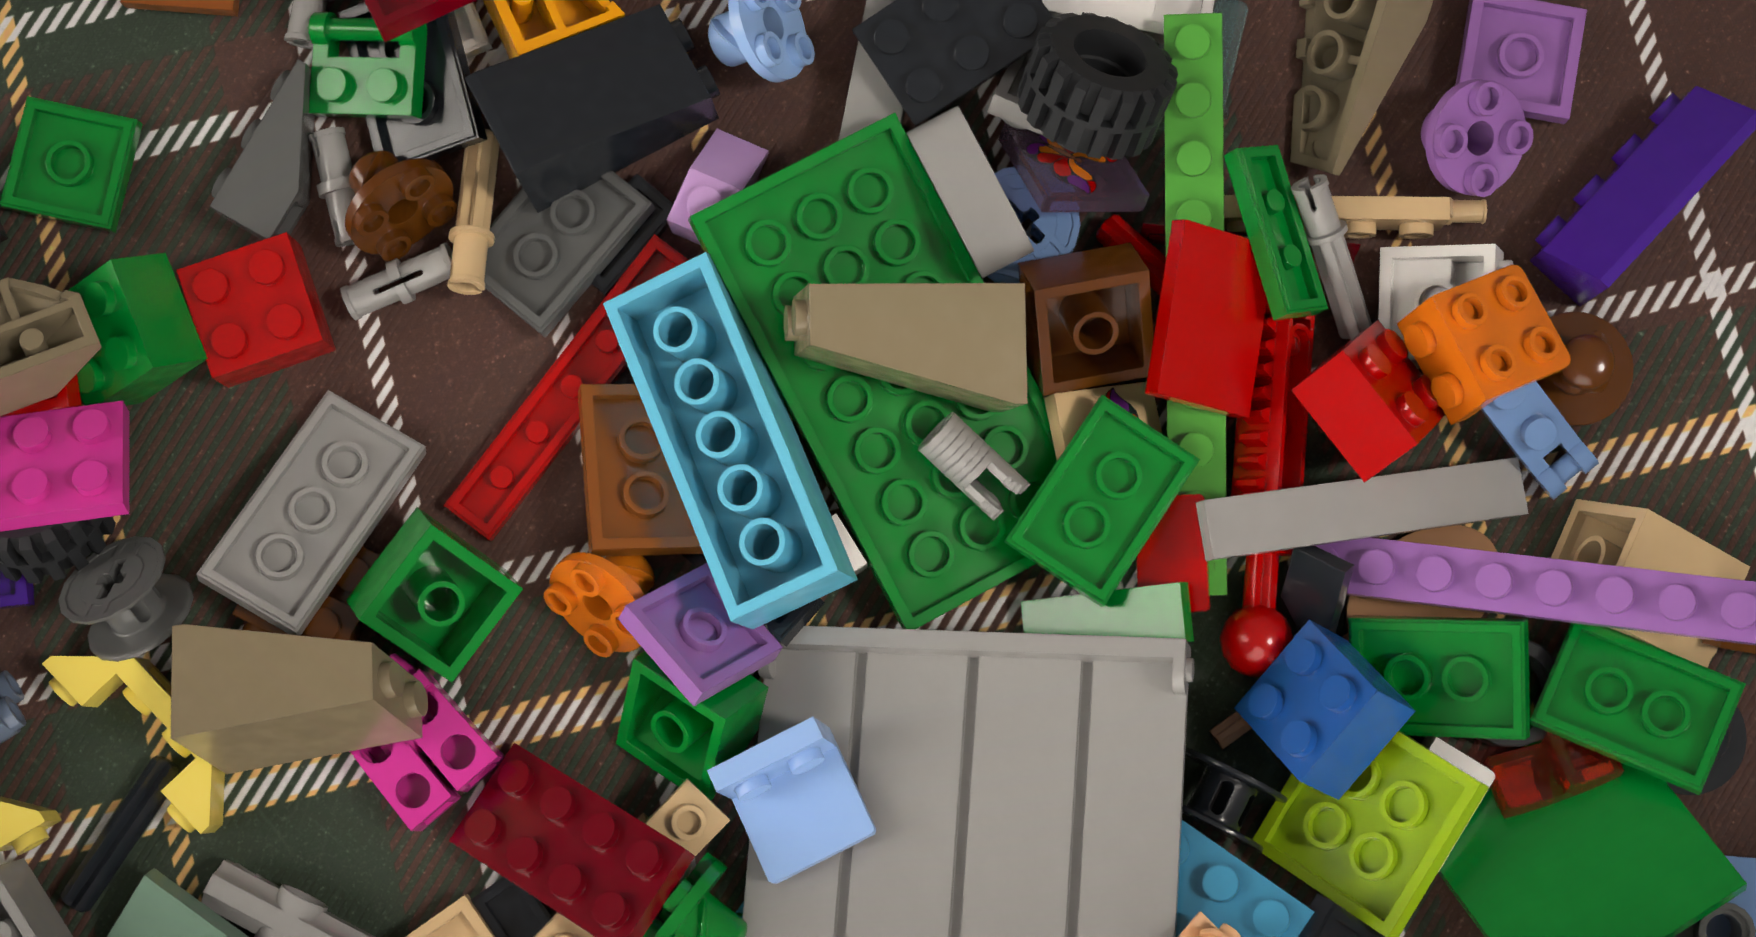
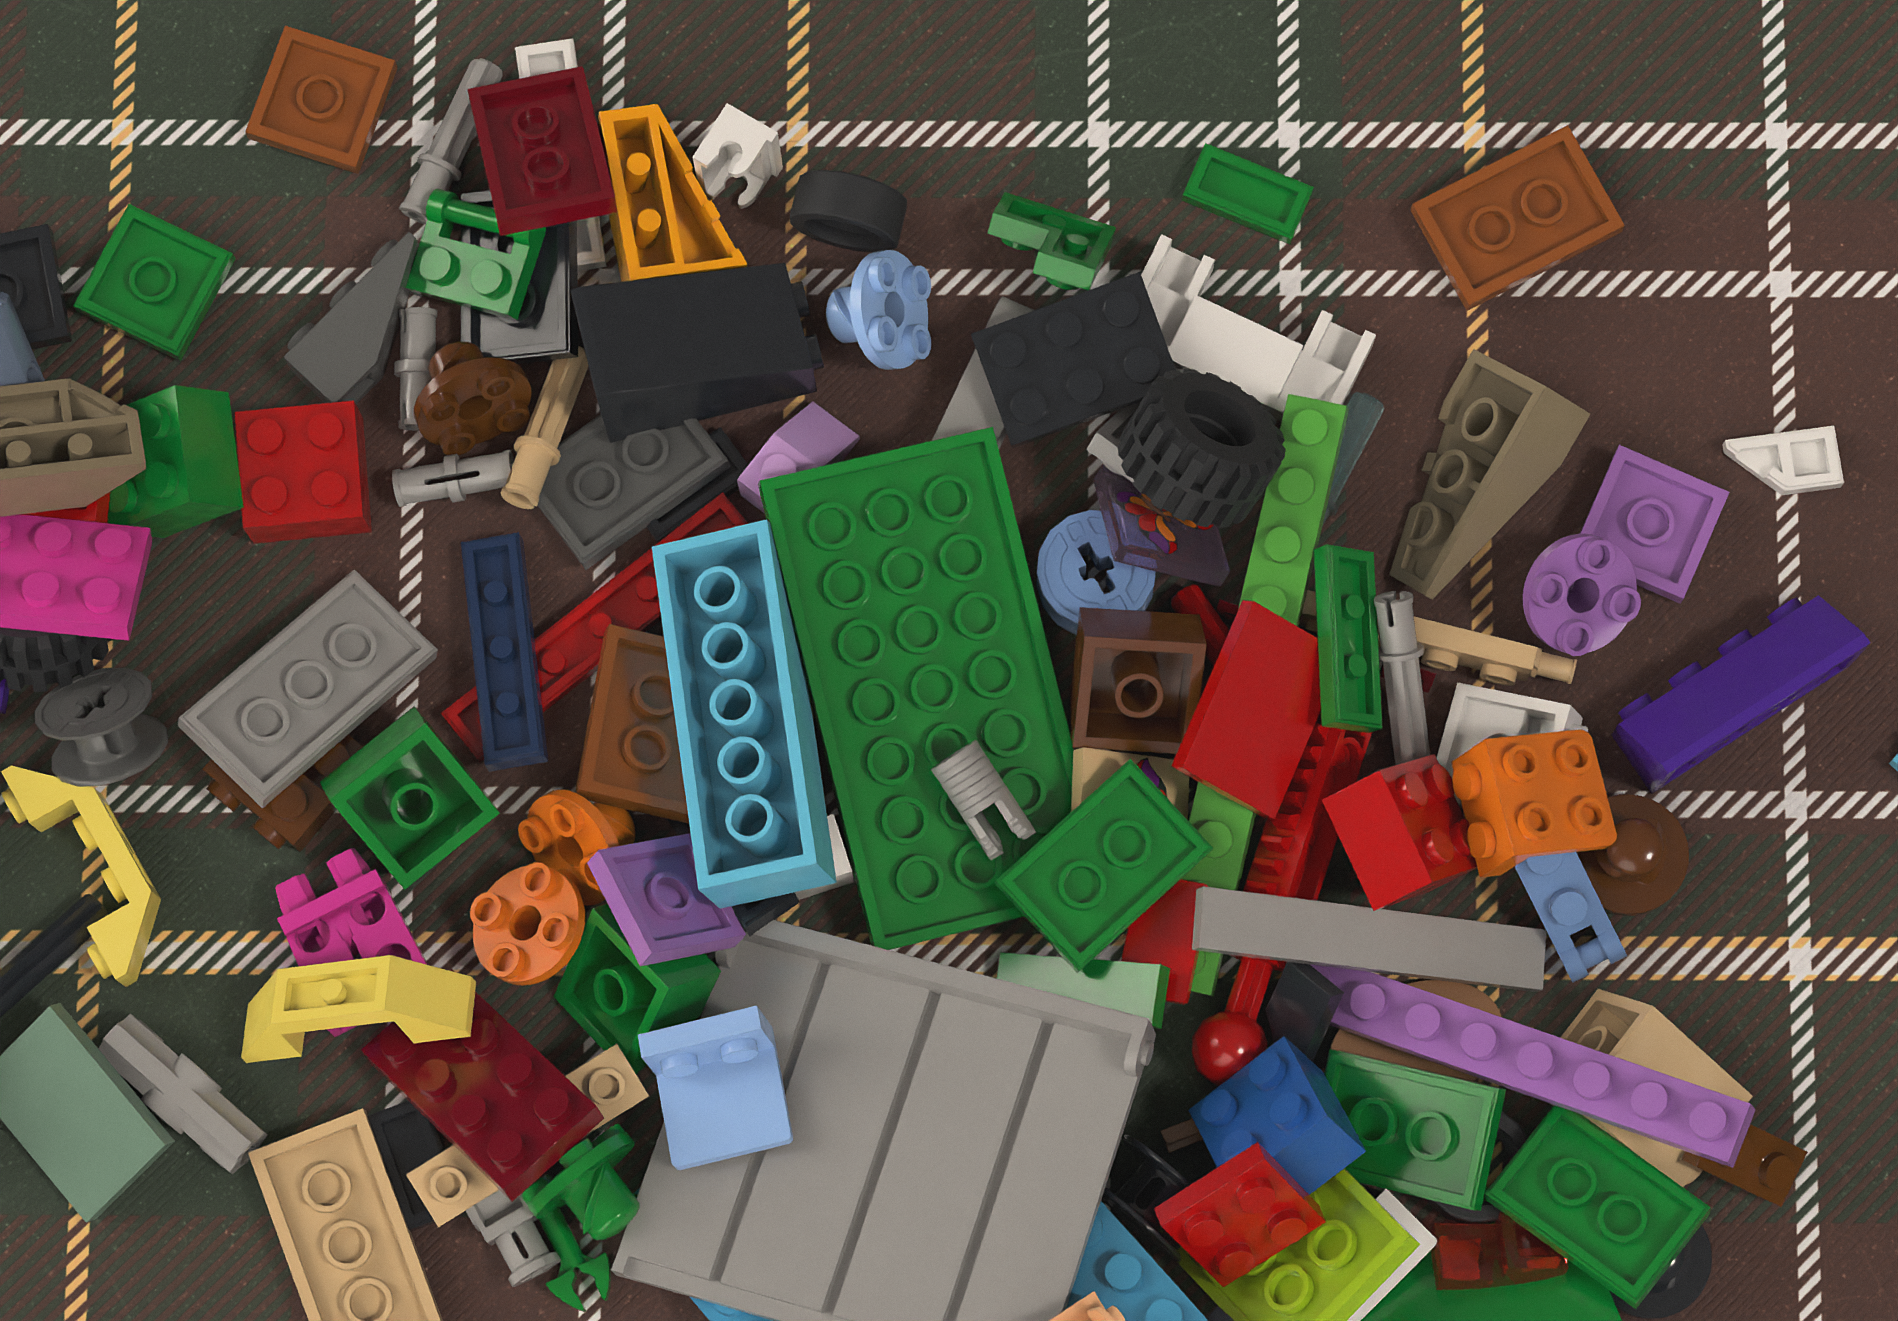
camera: 15 degrees right, 5 degrees down
(286, 697) = (238, 861): dark tan slope -> none
(451, 787) = (416, 996): none -> light yellow slope
(488, 434) = (504, 652): none -> dark blue tile
(576, 686) = (528, 924): none -> orange plate
(923, 336) = (959, 653): dark tan slope -> none
(970, 192) = (1048, 524): light grey beam -> none
(1314, 800) = (1240, 1214): none -> red plate

